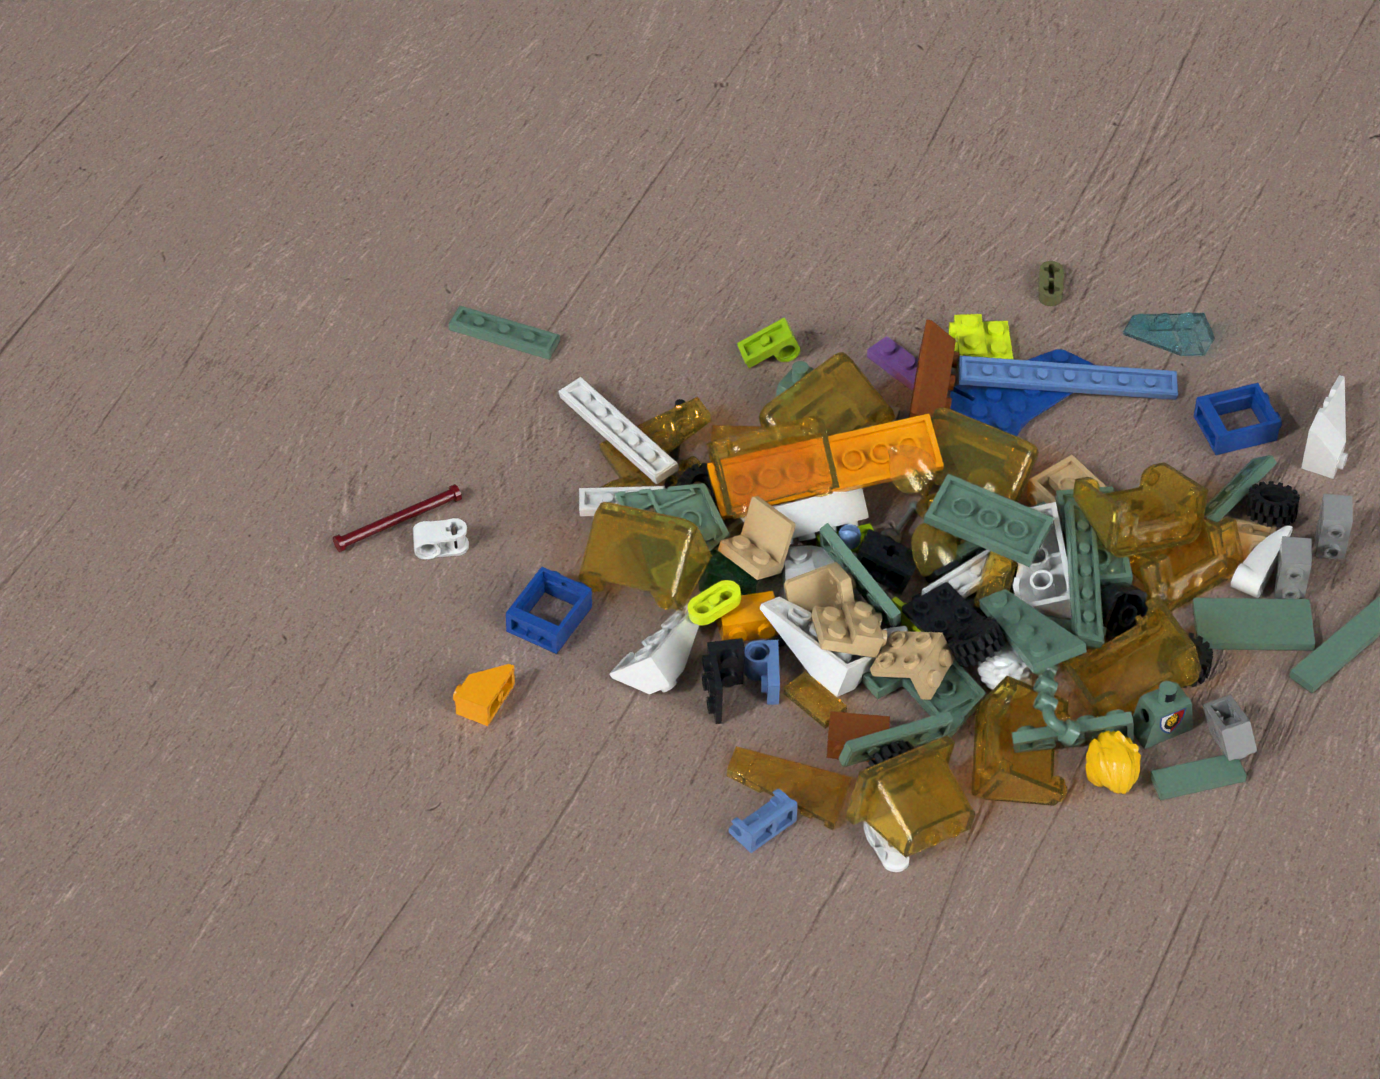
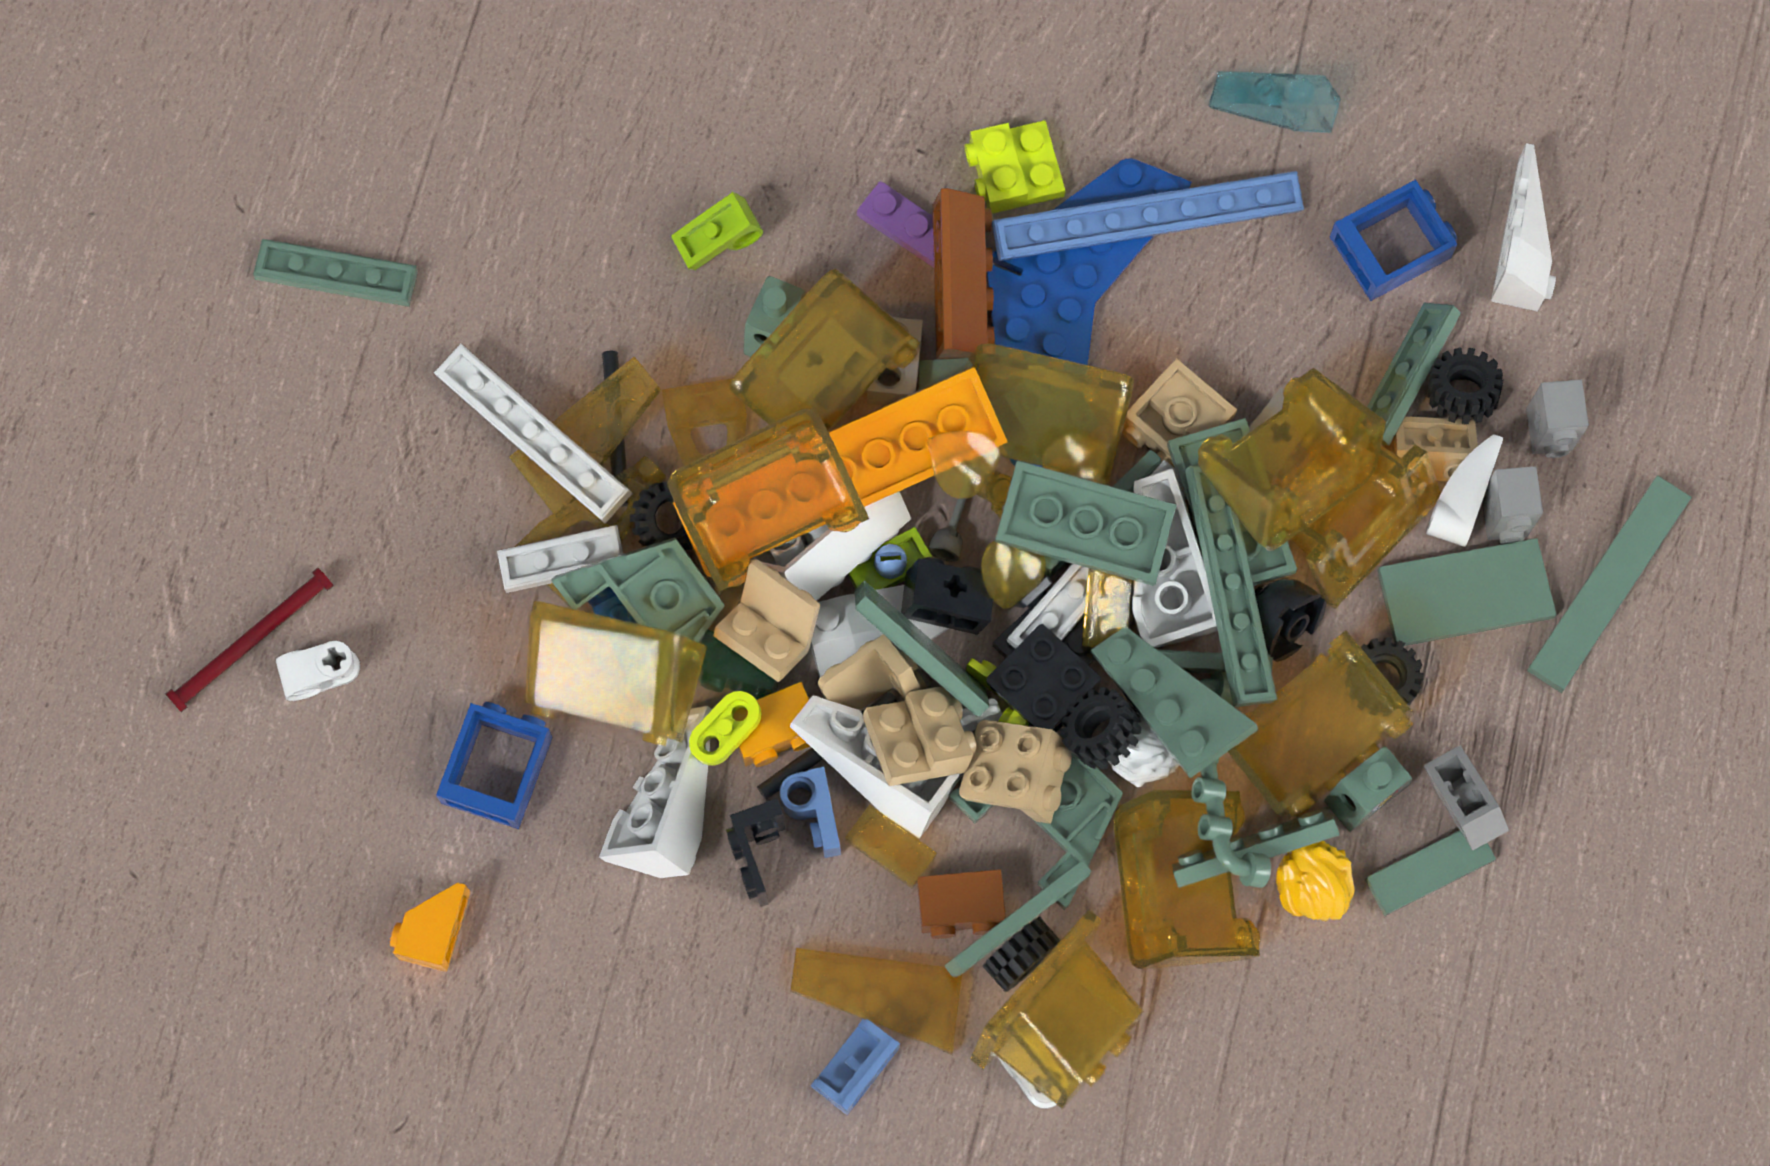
camera: 10 degrees left, 25 degrees up
(1055, 283) = (1103, 37): olive beam -> none

